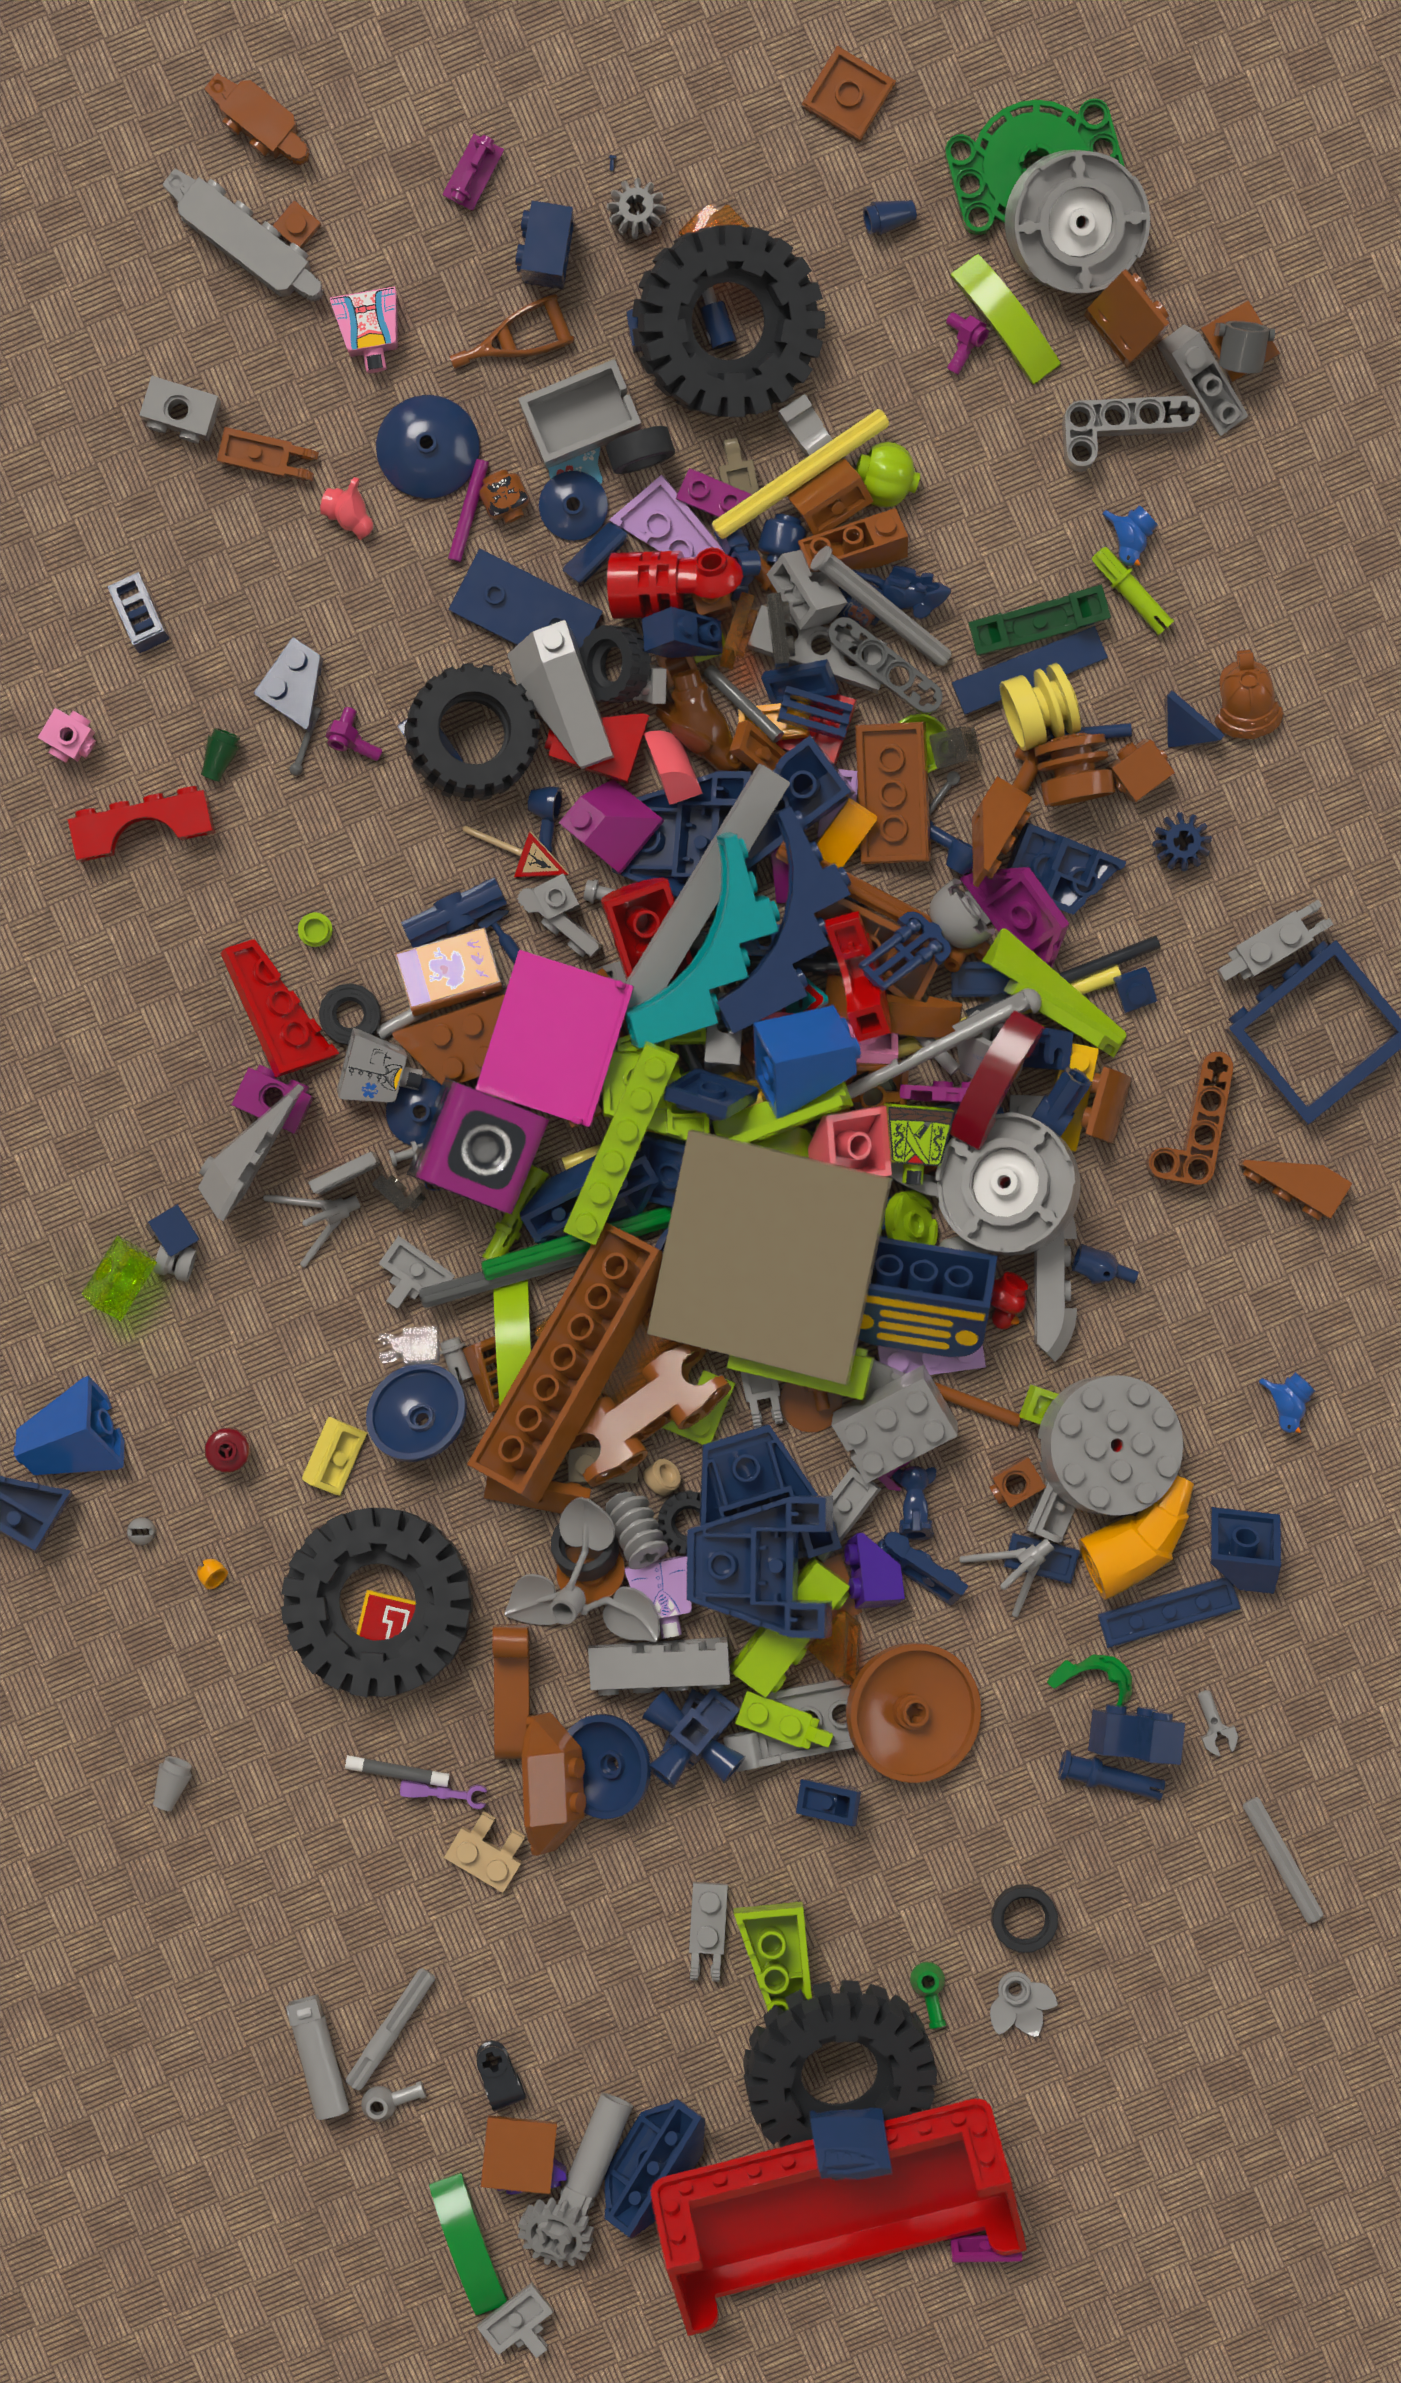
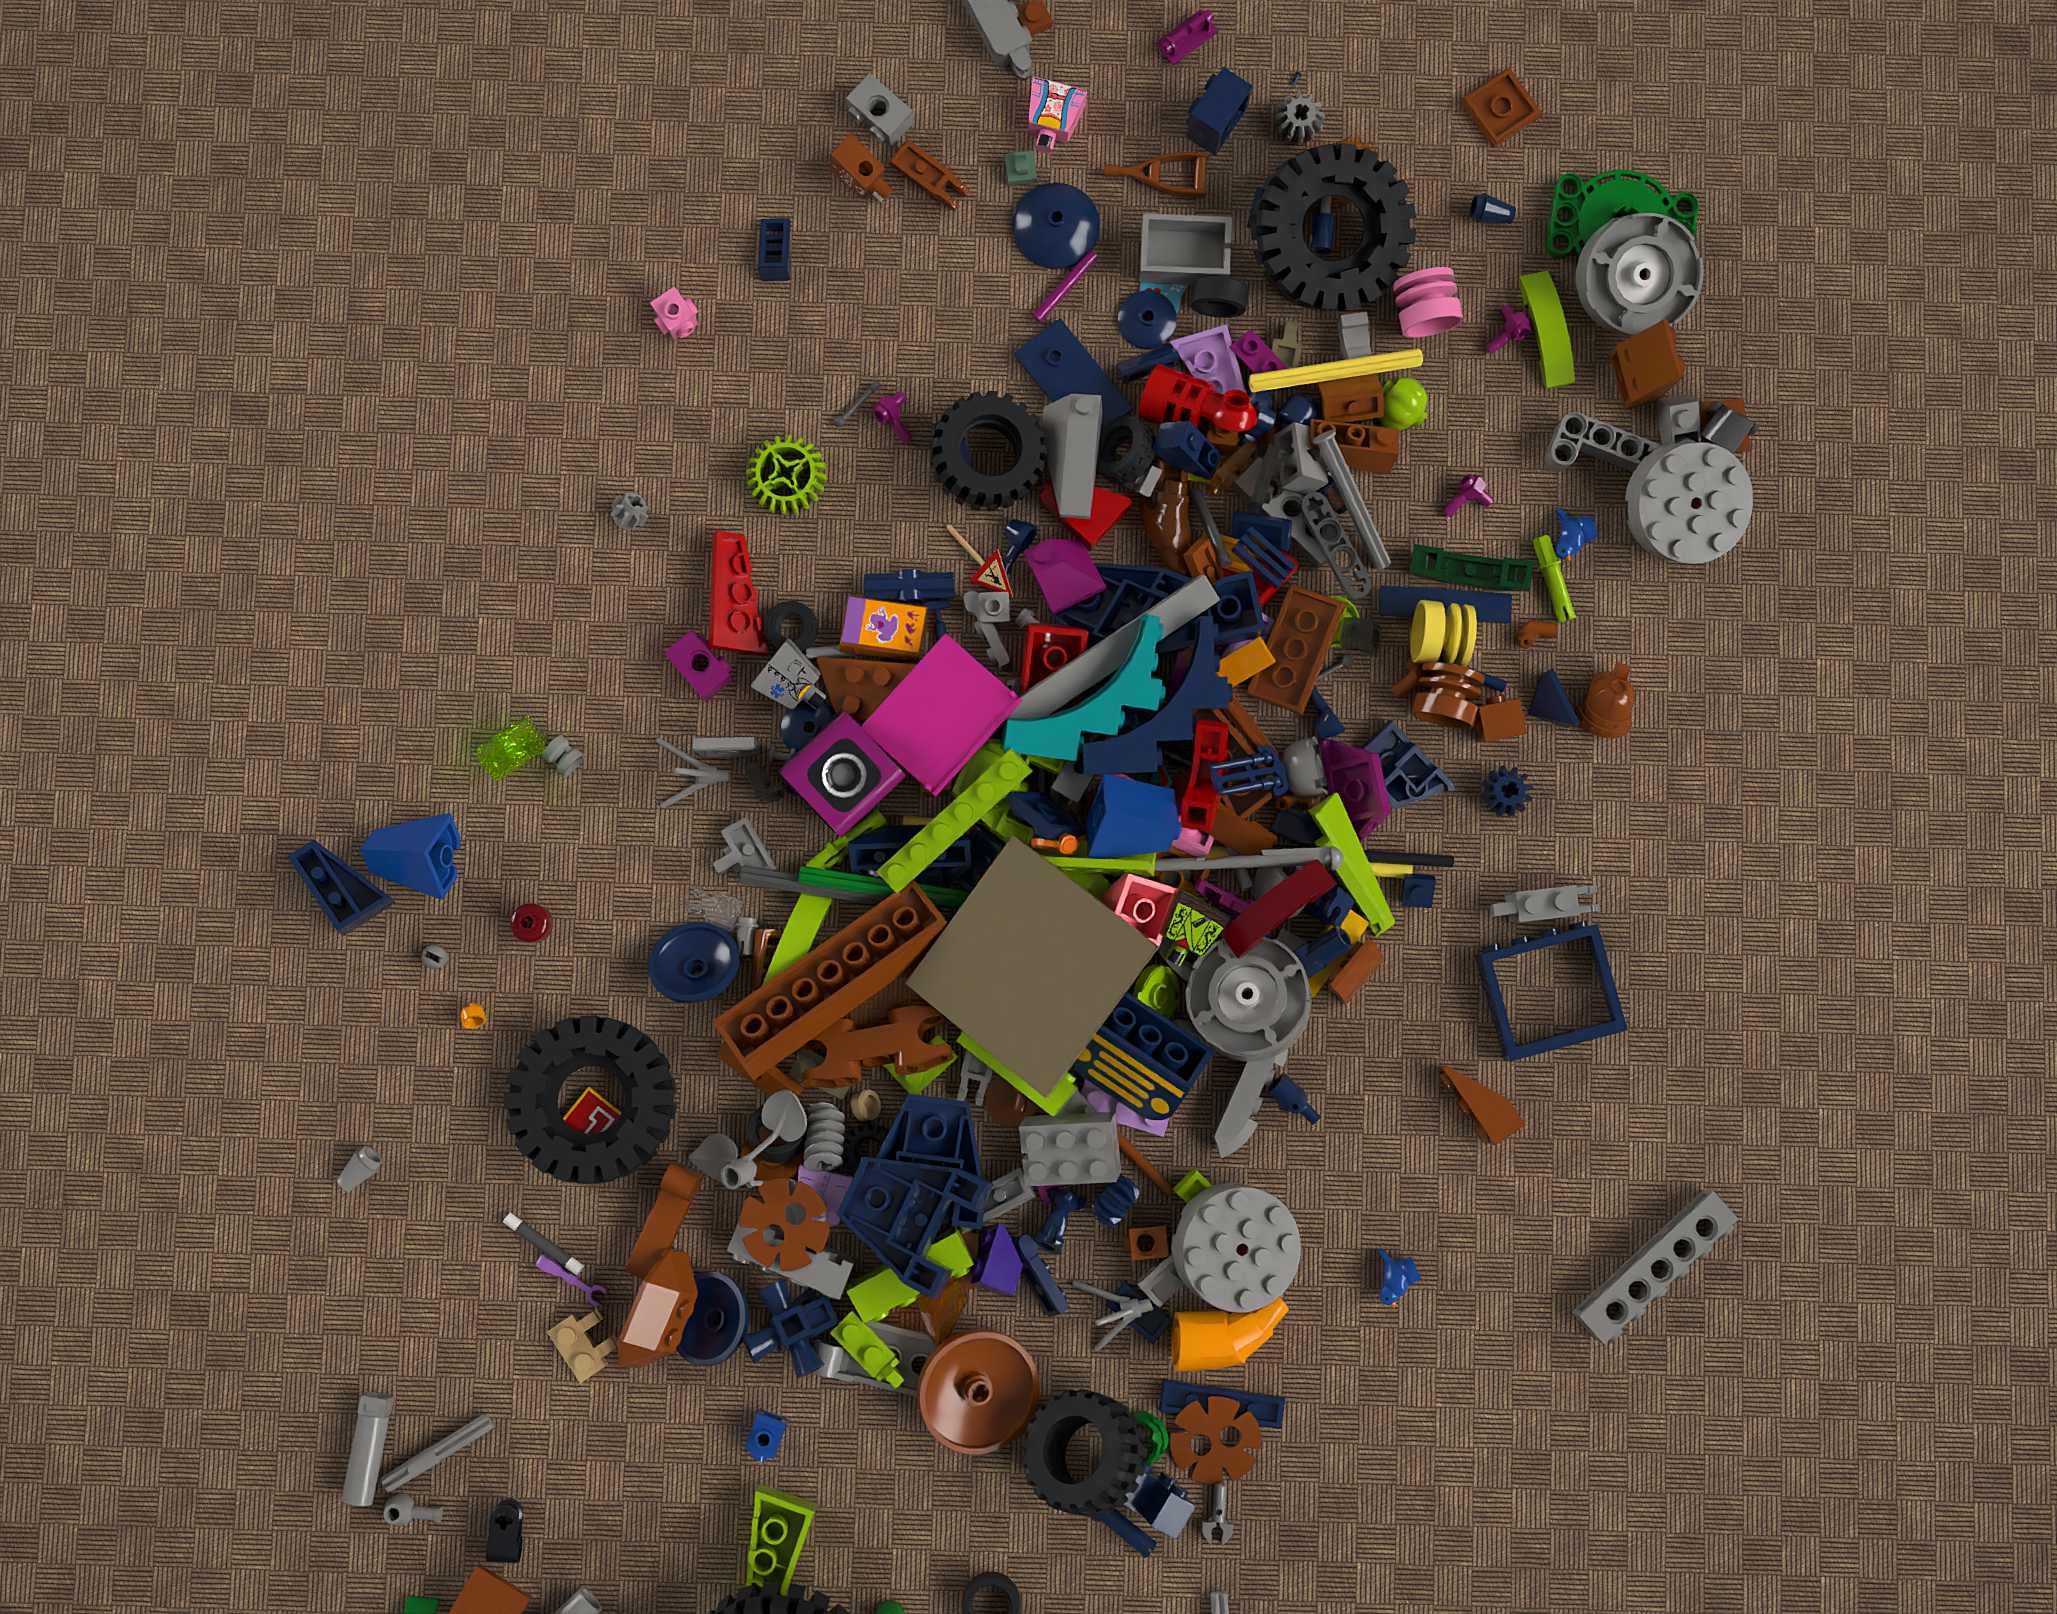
camera: 20 degrees right, 5 degrees down
(97, 834) = (662, 400): red arch -> none
(120, 970) = (629, 511): none -> light grey gear
(172, 1231) = (571, 730): dark blue panel -> none
(176, 482) = (851, 161): none -> dark orange torso
(219, 753) = (785, 382): dark green cone -> none
(235, 1167) = (645, 703): light grey wedge -> none
(259, 867) = (795, 468): none -> lime gear
(292, 683) = (868, 354): wing -> none
(315, 929) = (795, 550): lime plate -> none
(334, 1456) = (614, 968): light yellow slope -> none
(347, 509) = (972, 242): coral animal -> none
(361, 401) = (1020, 168): none -> sand green tile
(504, 496) = (1097, 287): dark orange head -> none
(667, 1632) = (808, 1233): none -> dark orange piece
(672, 766) = (1132, 548): coral brick -> none
(707, 1926) = (731, 1489): light grey hinge -> none
(722, 1844) = (768, 1424): none -> blue brick
(748, 1115) = (1066, 844): none -> orange piece
(828, 1801) = (876, 1433): dark blue slope -> none
(864, 352) = (1427, 302): none -> bright pink wheel
(909, 590) = (1381, 500): dark blue animal -> none
(965, 1456) = (1115, 1201): none -> dark blue gear
(992, 826) = (1364, 708): dark orange slope -> none
(1001, 533) = (1471, 488): none -> magenta piece
(1009, 1300) = (1206, 1091): red animal -> none
(1009, 1728) = (1048, 1446): none -> black tyre
(1134, 656) = (1533, 630): none -> dark orange arm
(1172, 1622) = (1220, 1415): none -> dark orange piece
(1199, 1117) = (1424, 1015): dark orange beam -> none
(1237, 446) = (1689, 502): none -> light grey piece
(1246, 1548) = (1308, 1382): dark blue slope -> none

